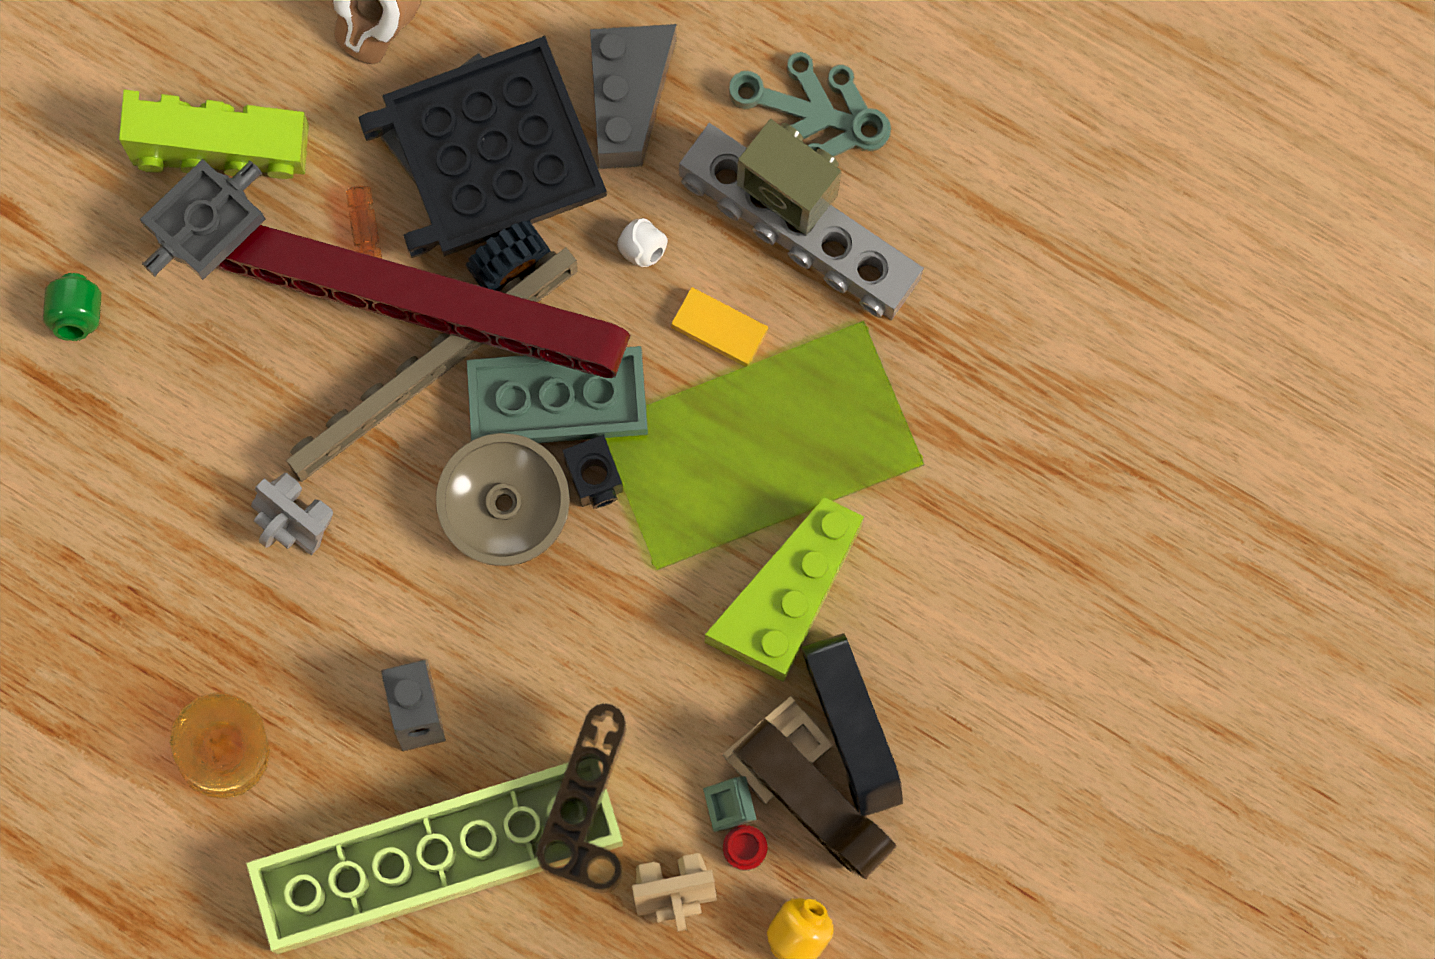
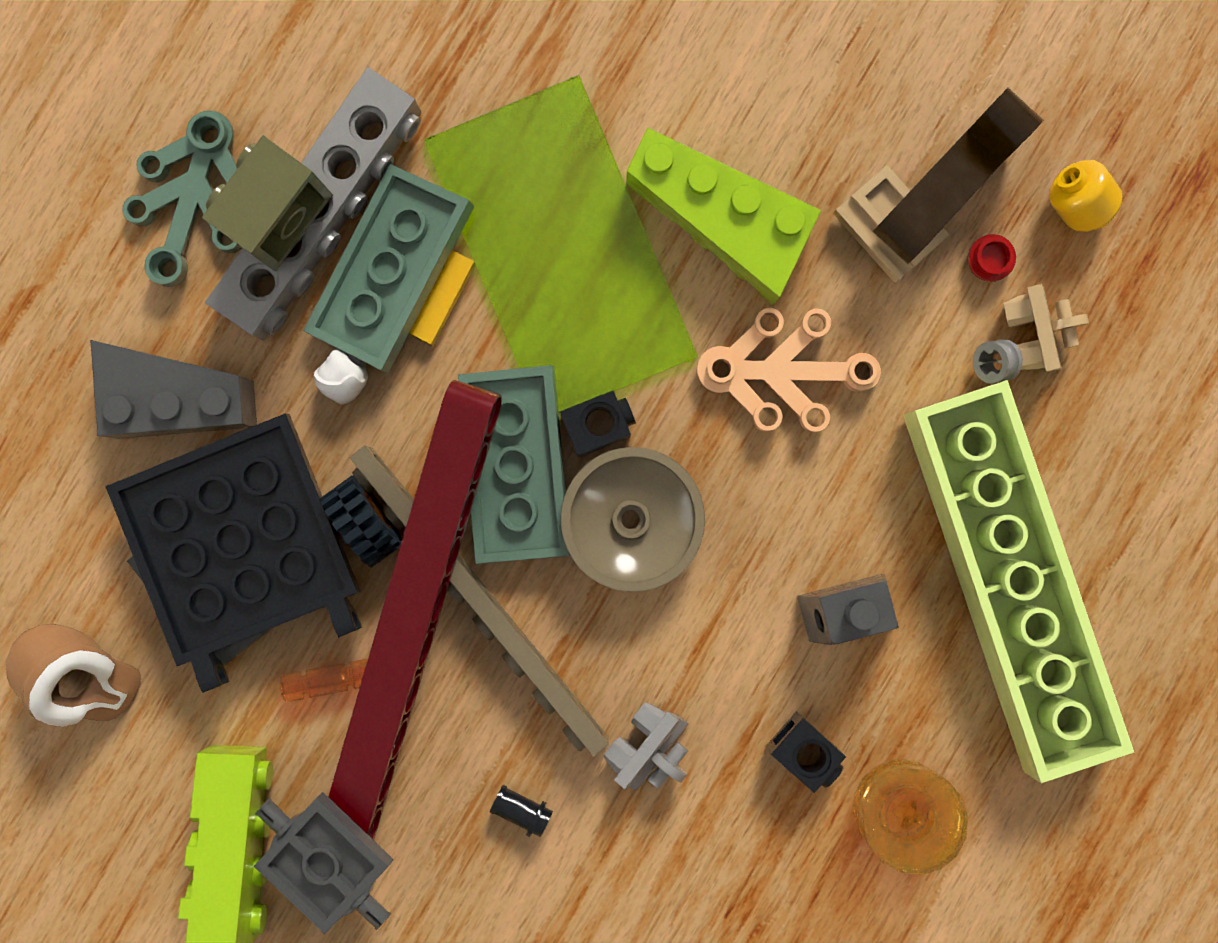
camera: 85 degrees left, 10 degrees up
(237, 399) = (521, 811): none -> black pin
(280, 639) = (792, 738): none -> black brick
(590, 794) = (967, 412): dark brown beam -> none
(640, 643) = (780, 371): none -> light nougat plant
(644, 847) = (1010, 361): none -> light grey bush
(729, 804) = (949, 273): sand green tile -> none
(741, 286) = (389, 268): none -> sand green plate
(854, 725) = (875, 136): black beam -> none

